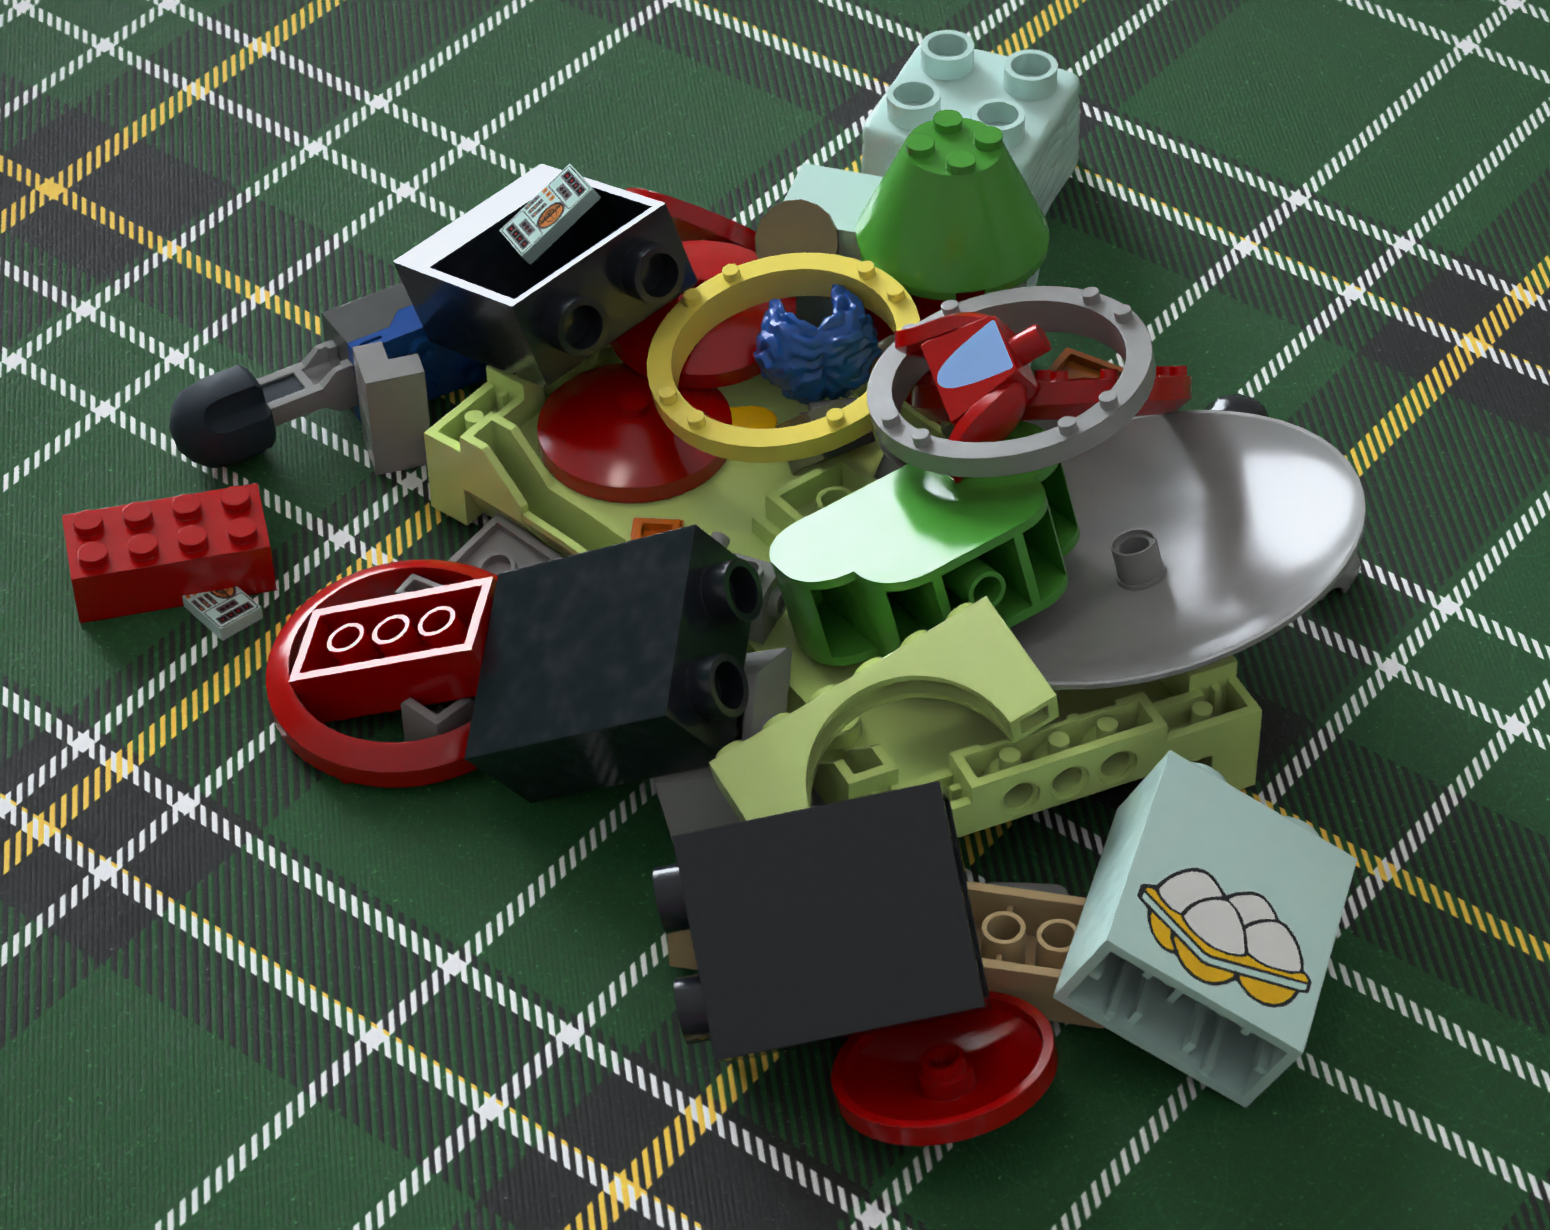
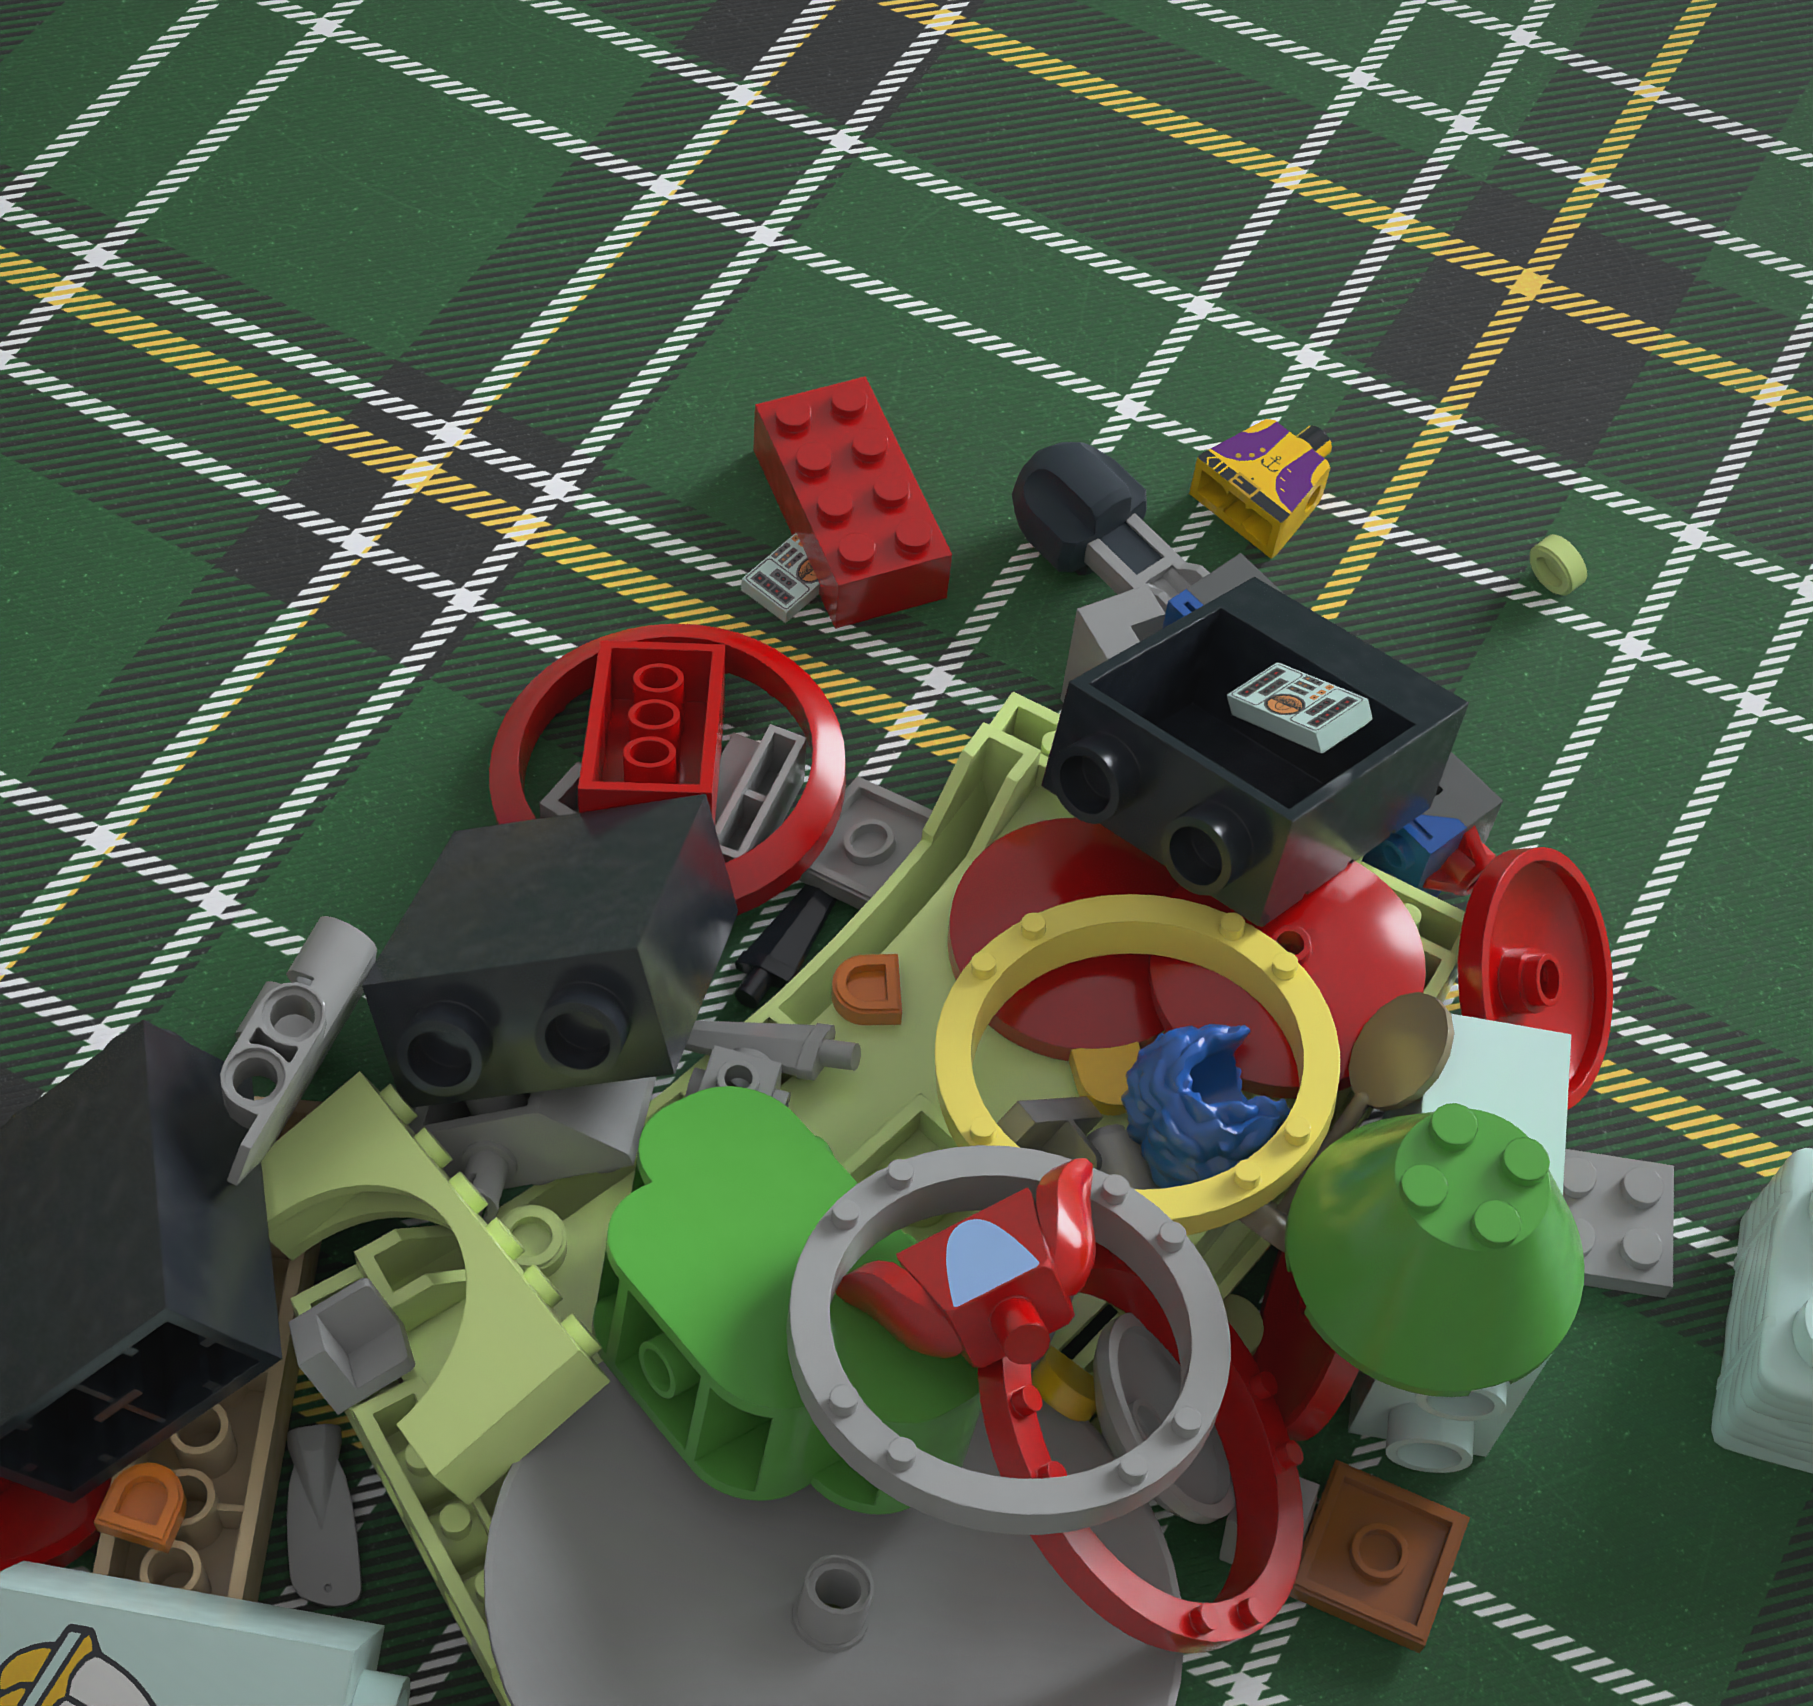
camera: 75 degrees right, 15 degrees up
(218, 331) = (1264, 481): none -> yellow torso
(334, 203) = (1558, 565): none -> yellowish green tile
(675, 779) = (292, 1033): none -> light grey panel
(933, 766) = (351, 1345): none -> light grey panel
(1013, 940) = (144, 1507): none -> orange tile

